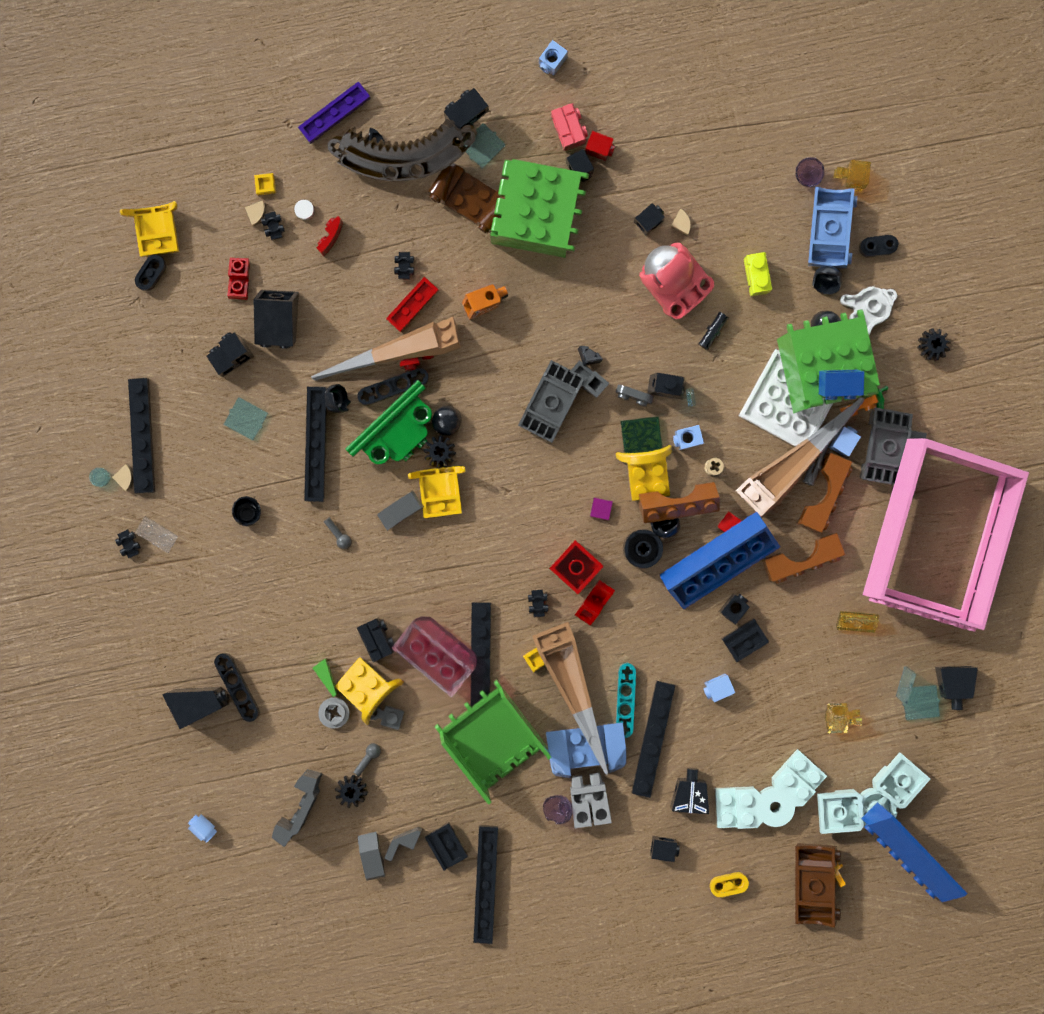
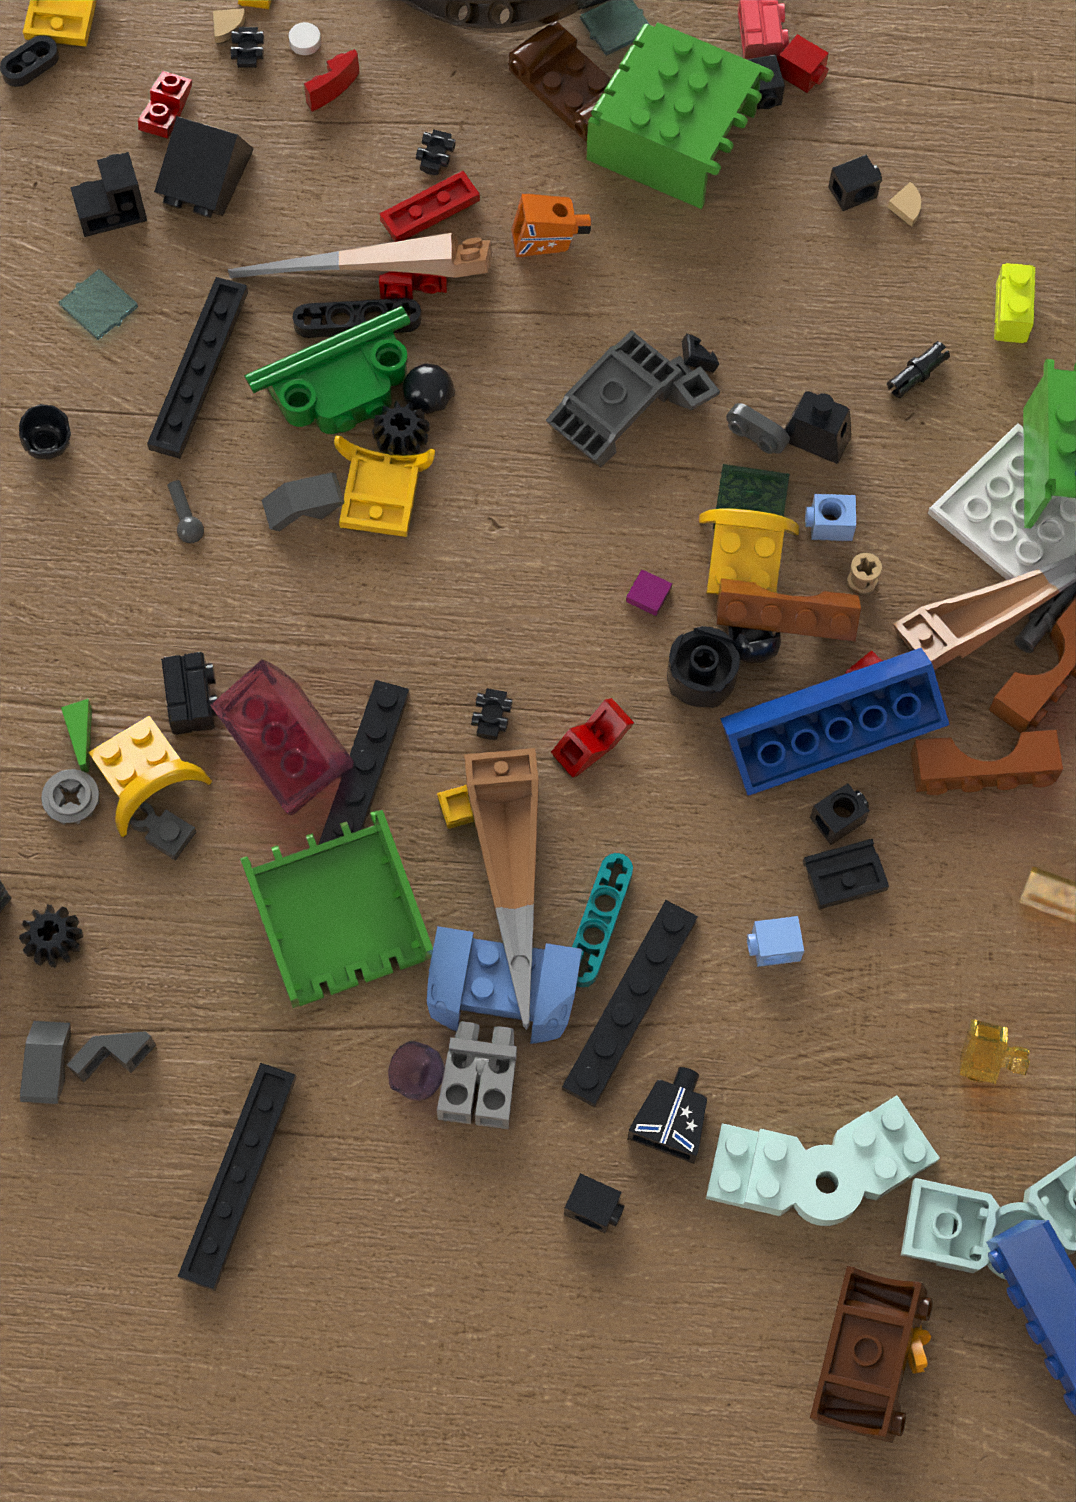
camera: 15 degrees right, 20 degrees down
(336, 399) = (257, 305): black hair -> none
(372, 751) = (114, 884): dark grey bar -> none
(446, 846) = (188, 1084): black plate -> none
(576, 567) = (577, 665): red brick -> none
(675, 279) = (874, 268): coral piece -> none
(690, 397) = (852, 457): clear light blue tile -> none
(728, 884) = (699, 1308): yellow plate -> none

